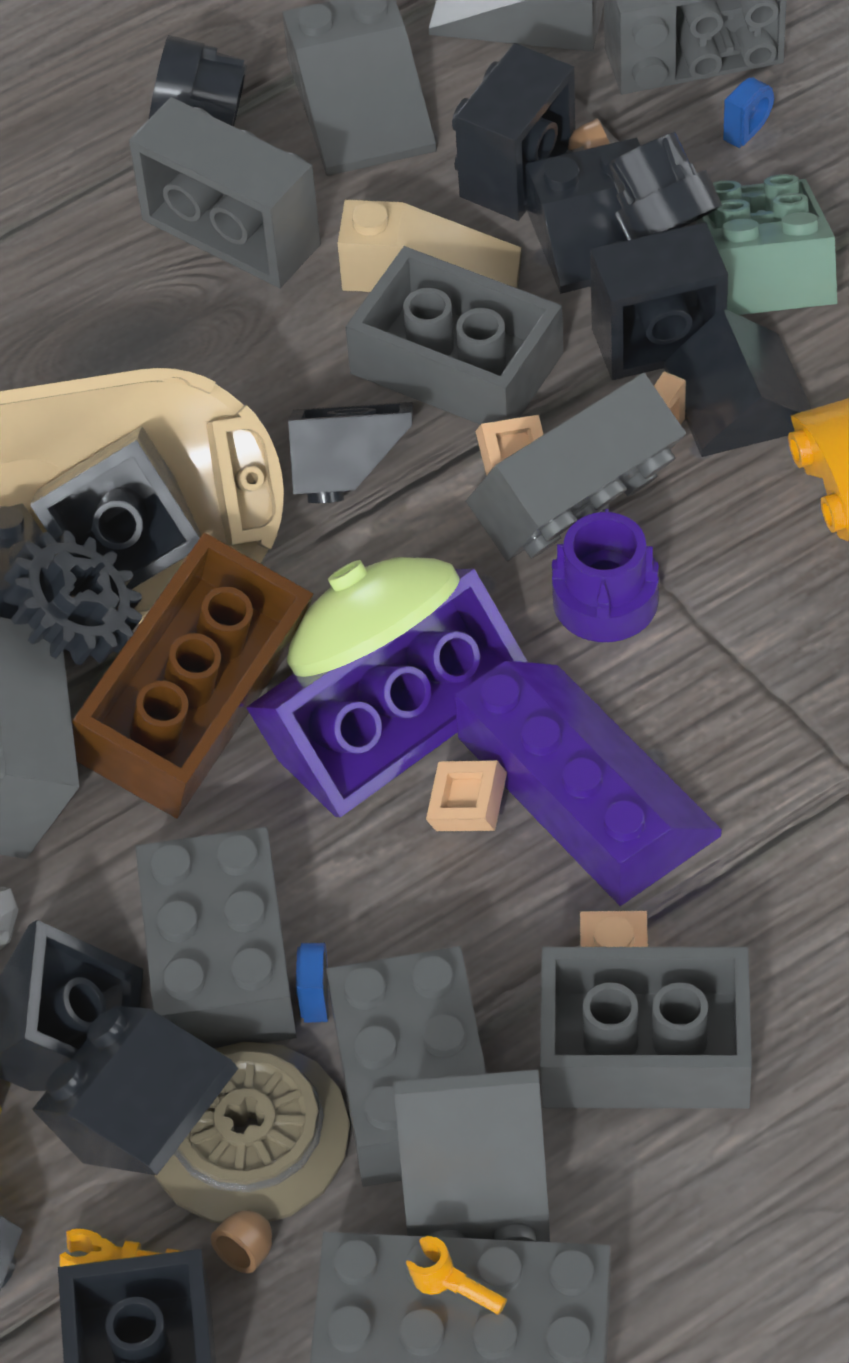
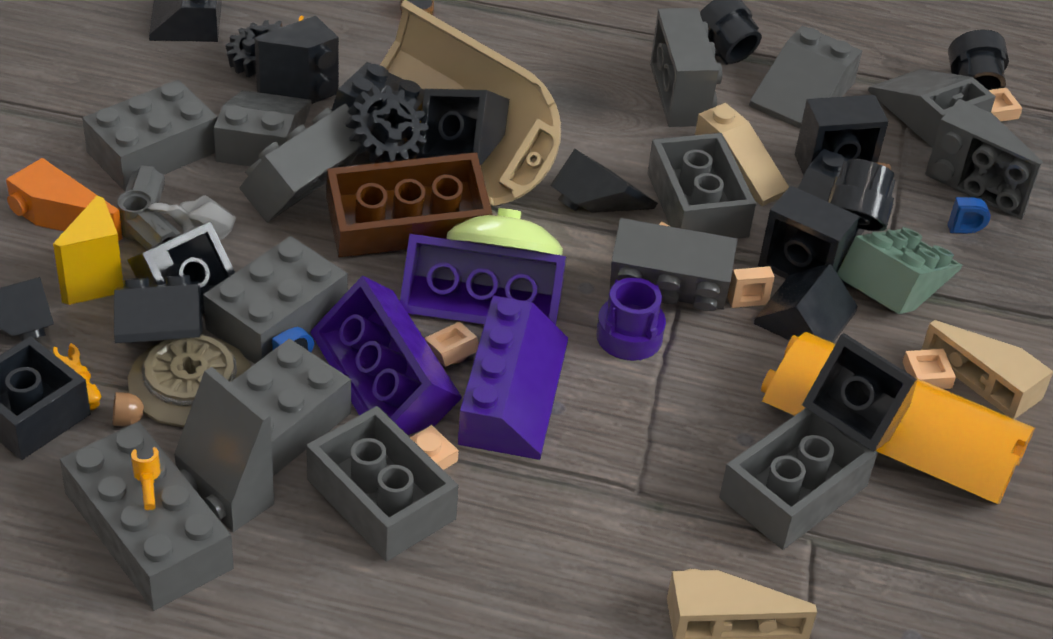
camera: 40 degrees right, 10 degrees down
(421, 884) = (385, 358): none -> dark purple slope

